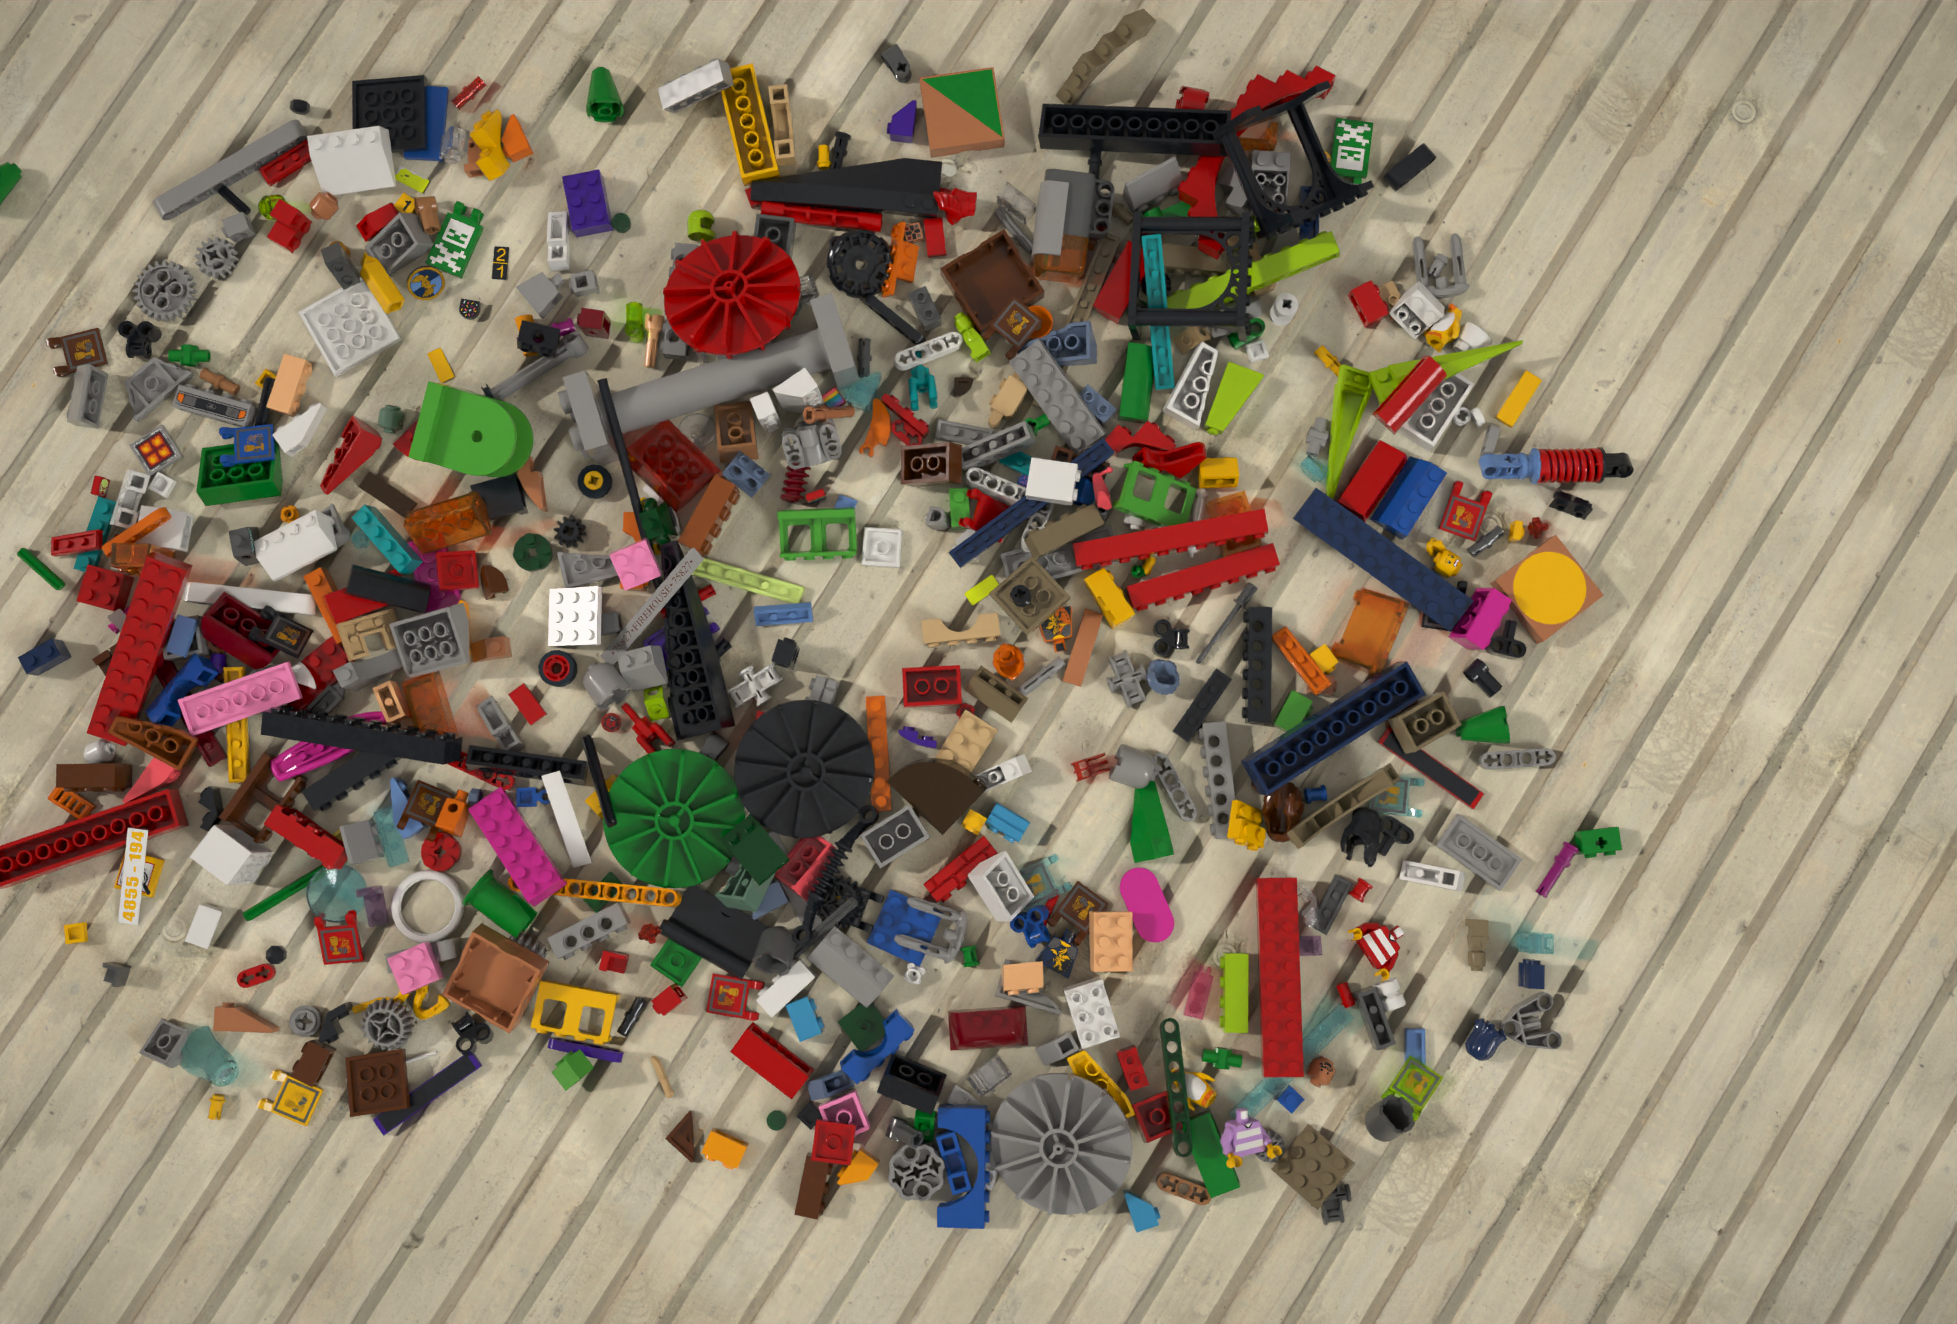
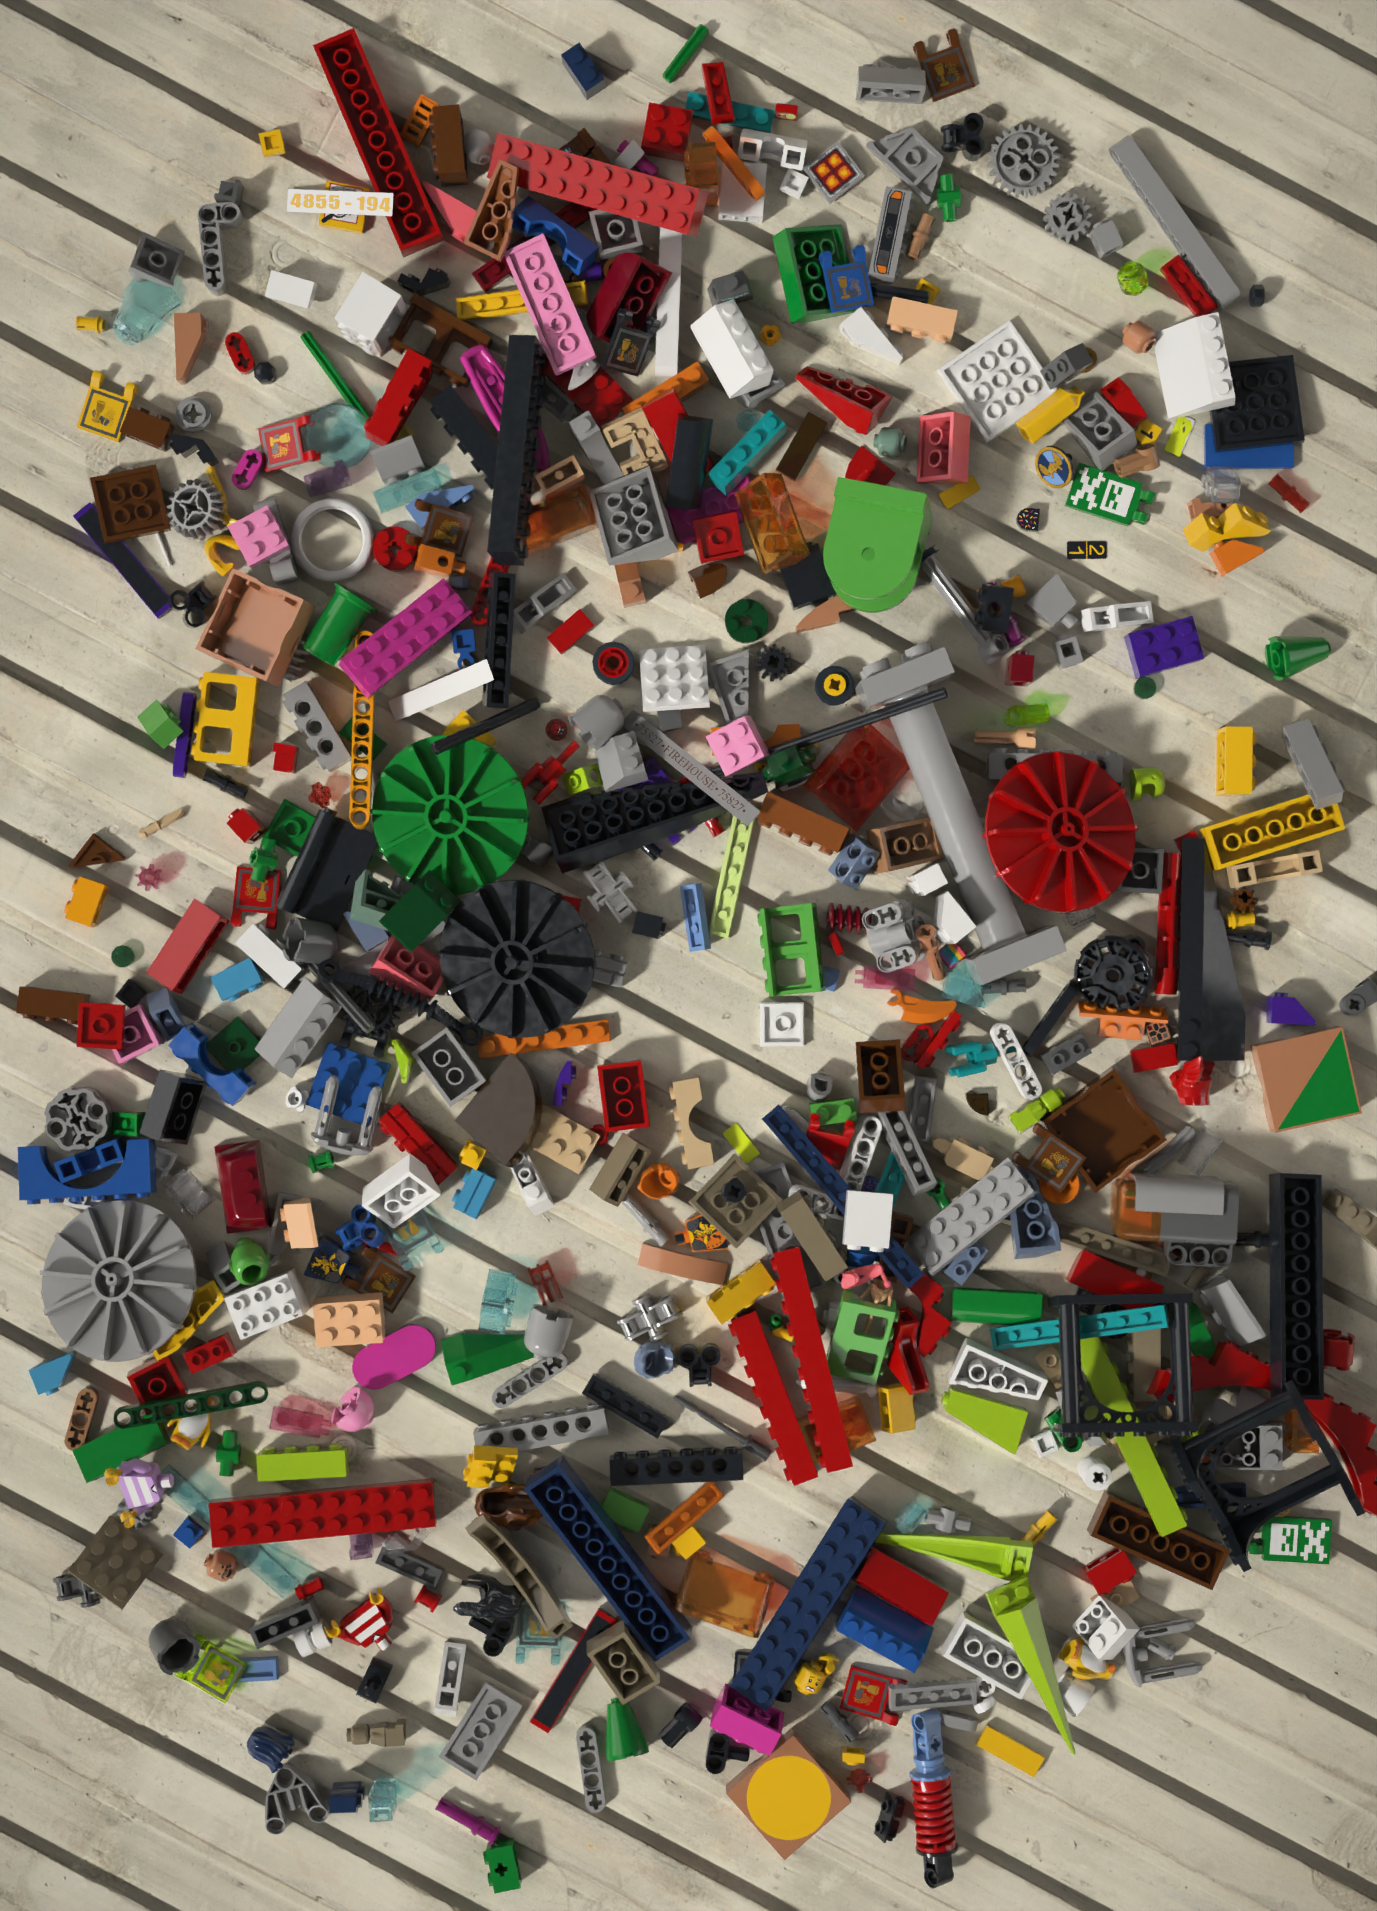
camera: 90 degrees right, 5 degrees up
(162, 990) = (216, 249): none -> light grey beam
(182, 635) = (617, 230): medium blue tile -> none
(229, 196) = (1138, 229): black axle -> none
(289, 226) = (1109, 298): red brick -> none
(361, 972) = (243, 466): none -> dark pink beam
(400, 374) = (943, 448): none -> coral slope
(688, 150) = (1235, 761): none -> yellow brick
(700, 987) = (263, 859): none -> green axle
(703, 1093) = (150, 871): none -> clear pink gear
(807, 153) = (1238, 903): none -> reddish brown gear
(850, 455) = (895, 980): none -> clear pink hinge
(861, 1167) = (73, 1057): light orange slope -> none
(886, 874) = (405, 1060): none -> lime slope
(901, 1131) = (119, 1099): dark grey piece -> none
(1053, 1025) = (249, 1262): none -> bright green piece
(1104, 808) = (497, 1302): none -> clear light blue brick
(1117, 479) = (878, 1294): none -> light nougat plant
(1192, 942) = (355, 1411): none -> bright pink cylinder
(1315, 794) = (533, 1541): blue bush -> none
(1338, 275) = (1180, 1552): none -> reddish brown brick
(1409, 167) = (1277, 1609): black beam -> none
(1410, 394) = (1001, 1626): red brick -> none
(1429, 943) = (374, 1679): none -> black beam
(1466, 459) = (932, 1694): none -> light grey gear

